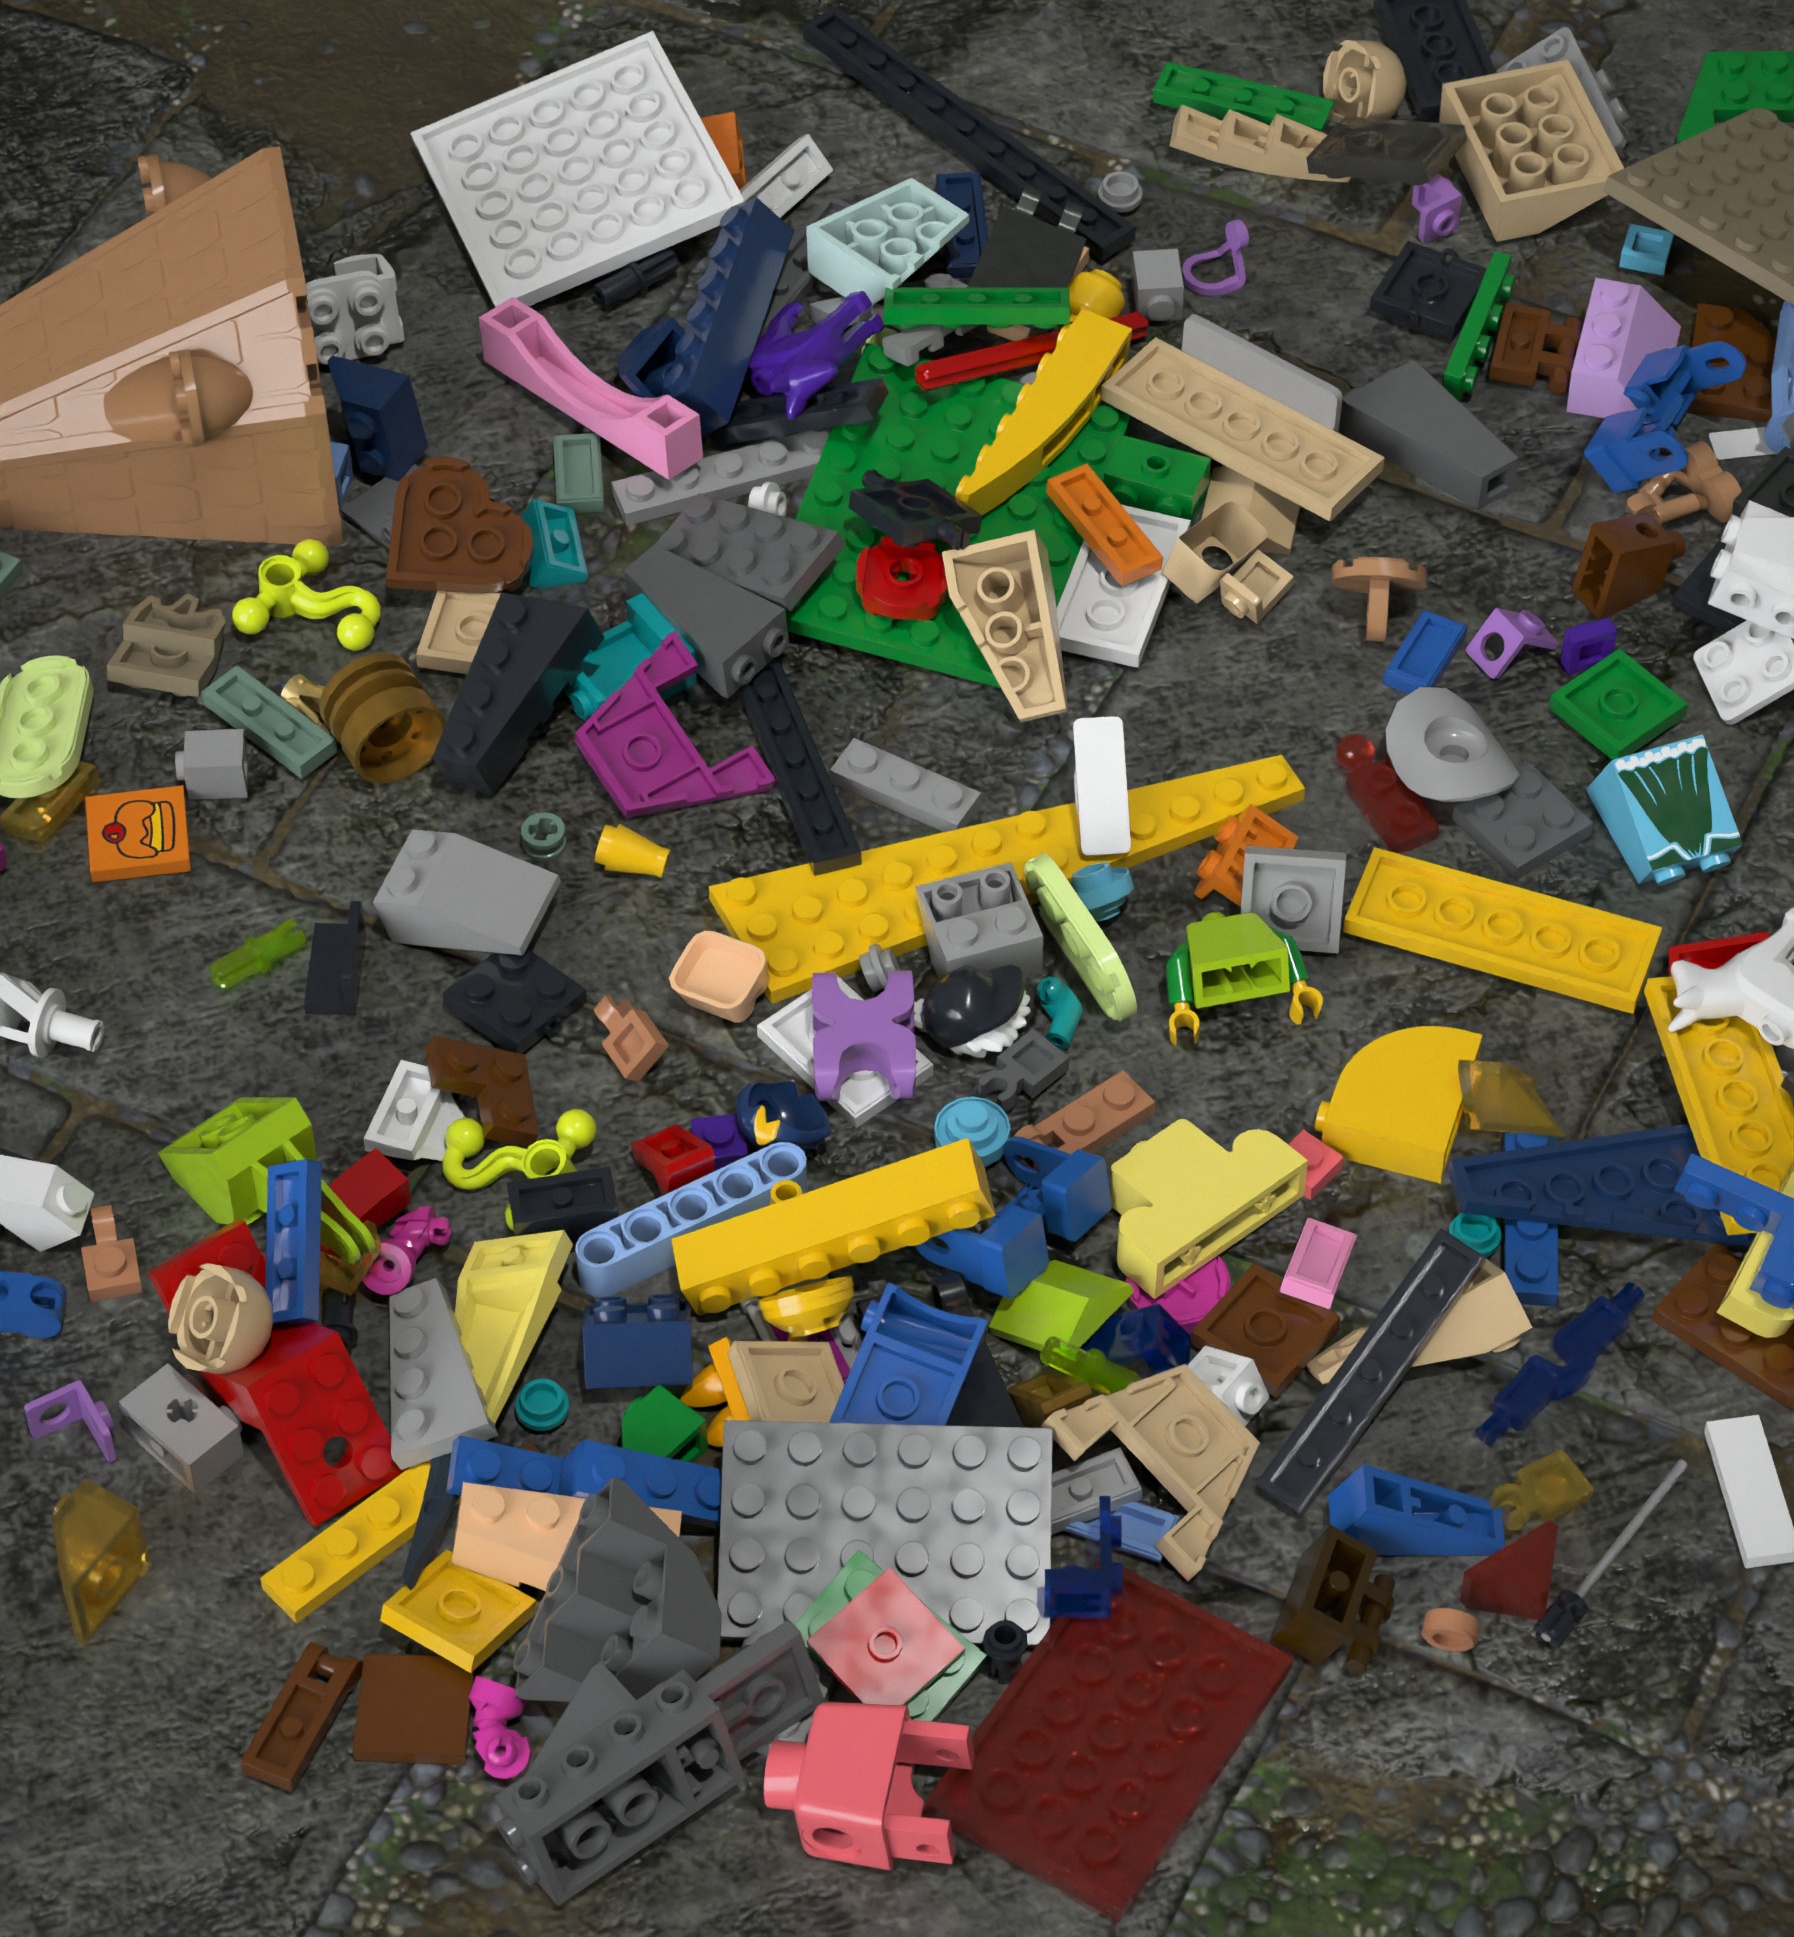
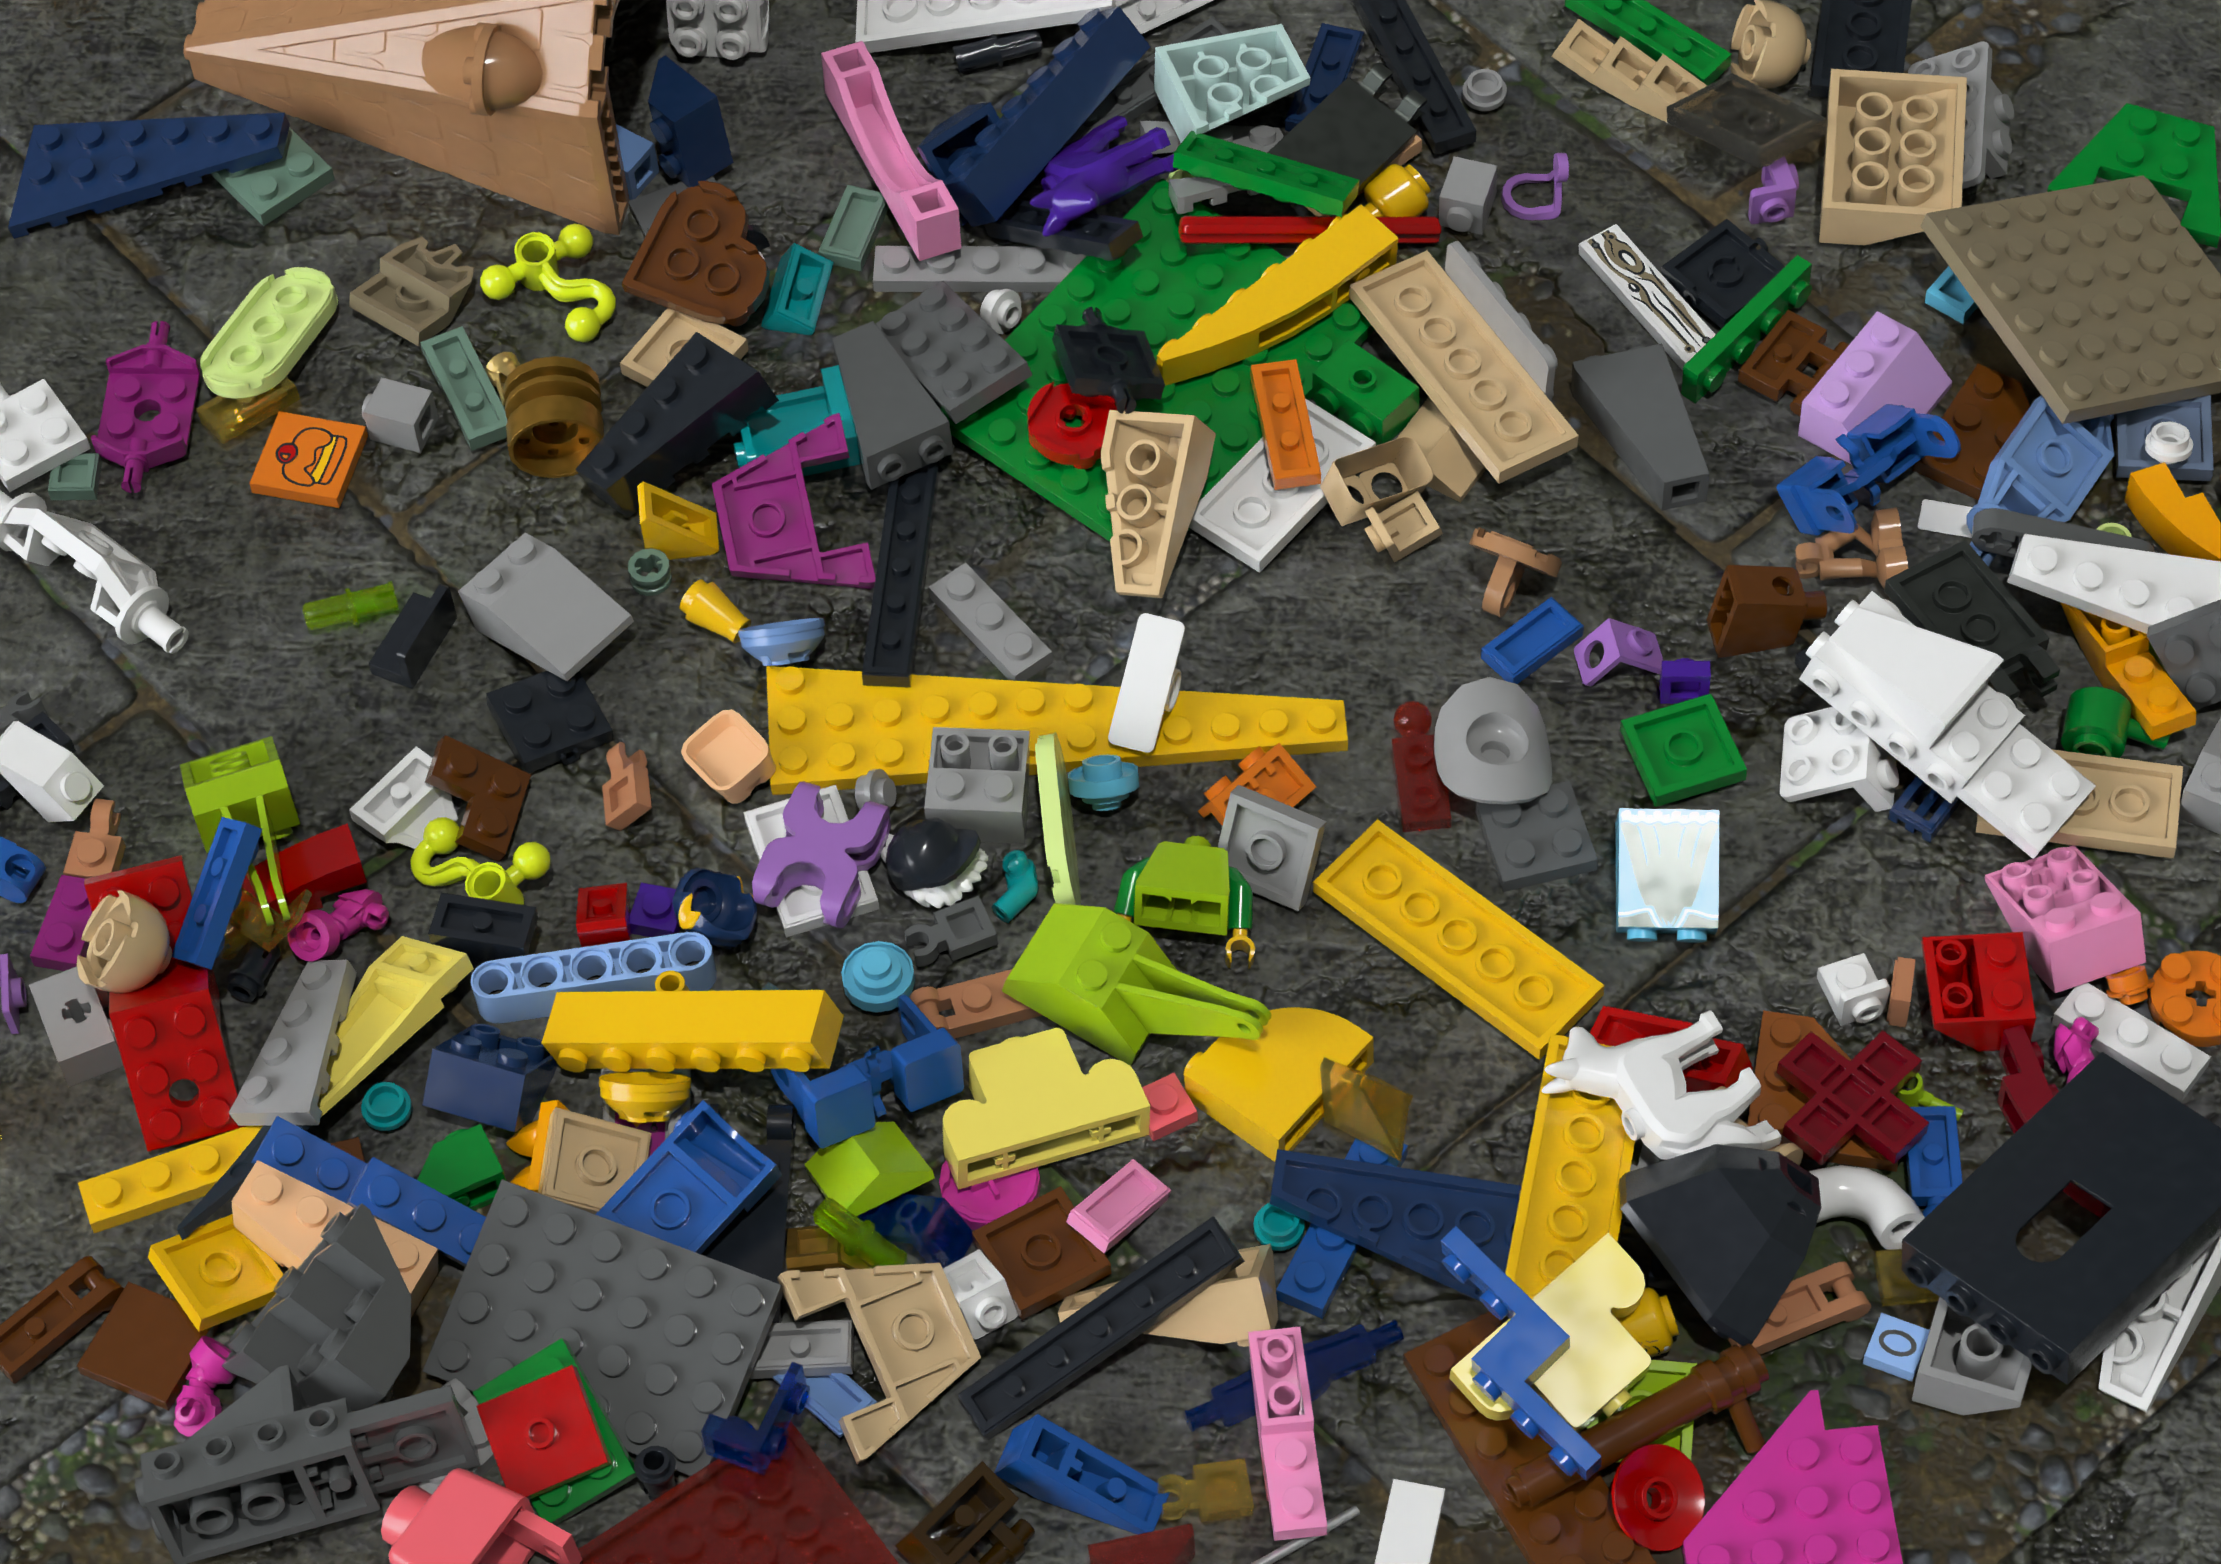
camera: 25 degrees right, 5 degrees up
(118, 1338) = (63, 927): none -> magenta plate
(548, 784) = (676, 524): none -> yellow slope
(717, 857) = (783, 641): none -> medium blue piece
(1215, 1067) = (1119, 986): none -> lime slope
(1366, 326) = (1646, 294): none -> white tile
(1587, 1414) = (1286, 1433): none -> bright pink slope

